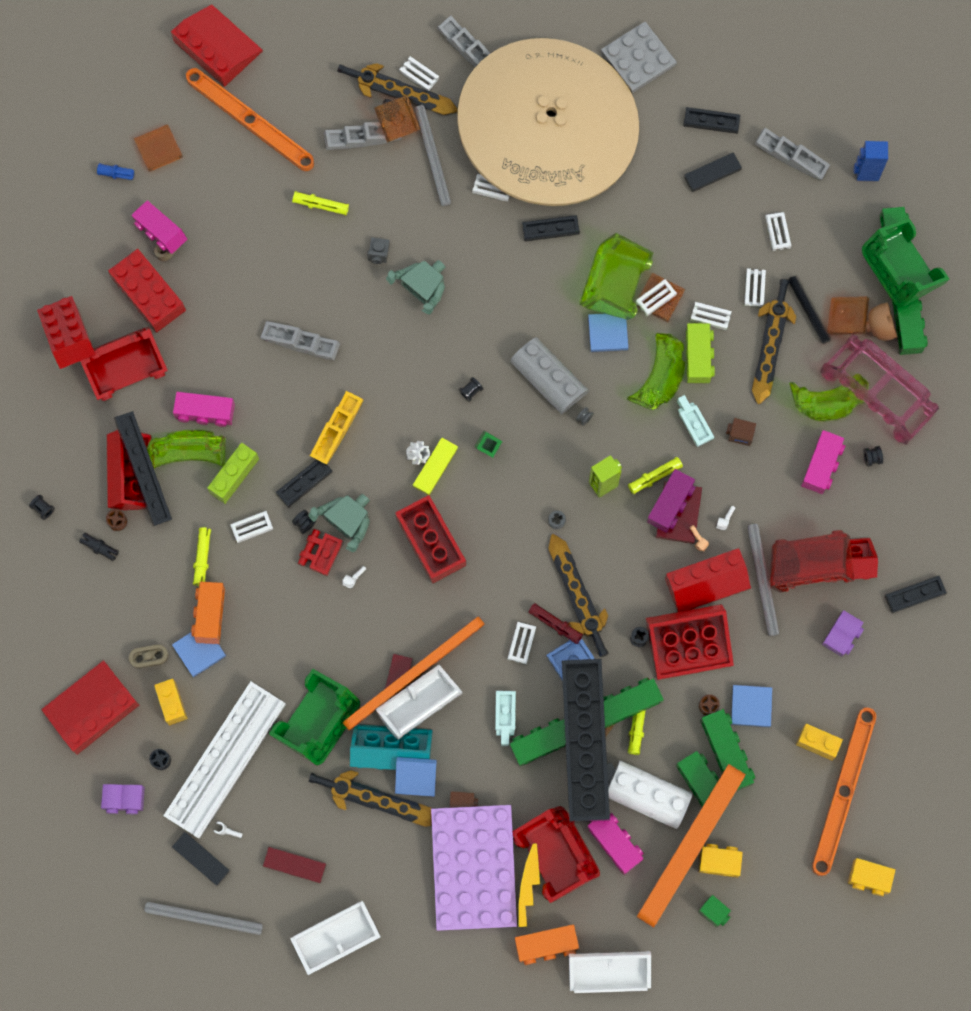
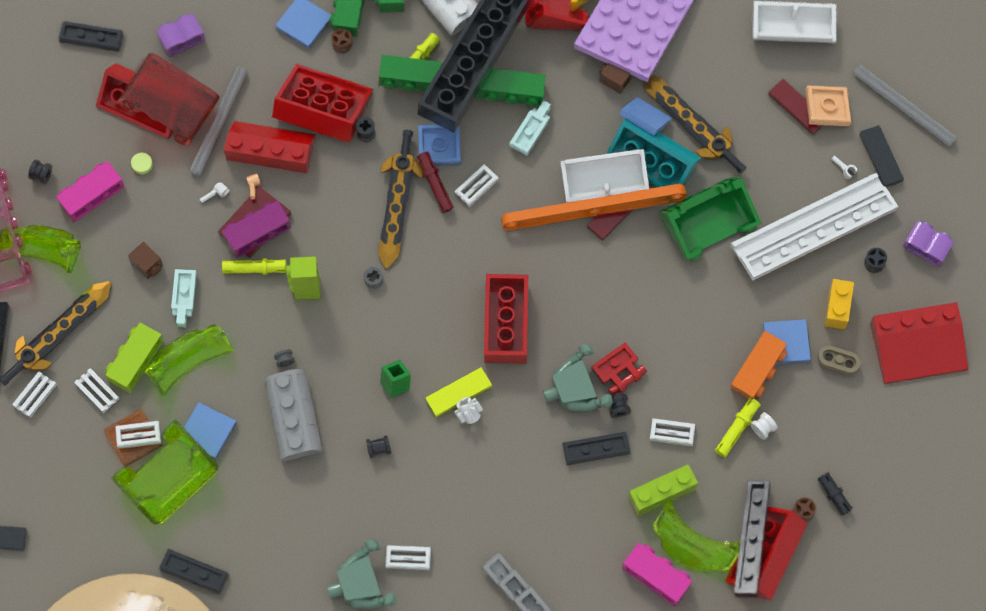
camera: 150 degrees left, 5 degrees down
(41, 507) = (873, 564): black bush -> none
(181, 568) = (764, 426): none -> white wheel
(268, 878) = (828, 105): none -> light nougat tile
(336, 427) = (533, 482): yellow slope -> none
(349, 581) = (605, 326): white hand -> none
(415, 322) = (408, 566): none -> white tile
(799, 510) = (141, 163): none -> yellowish green tile

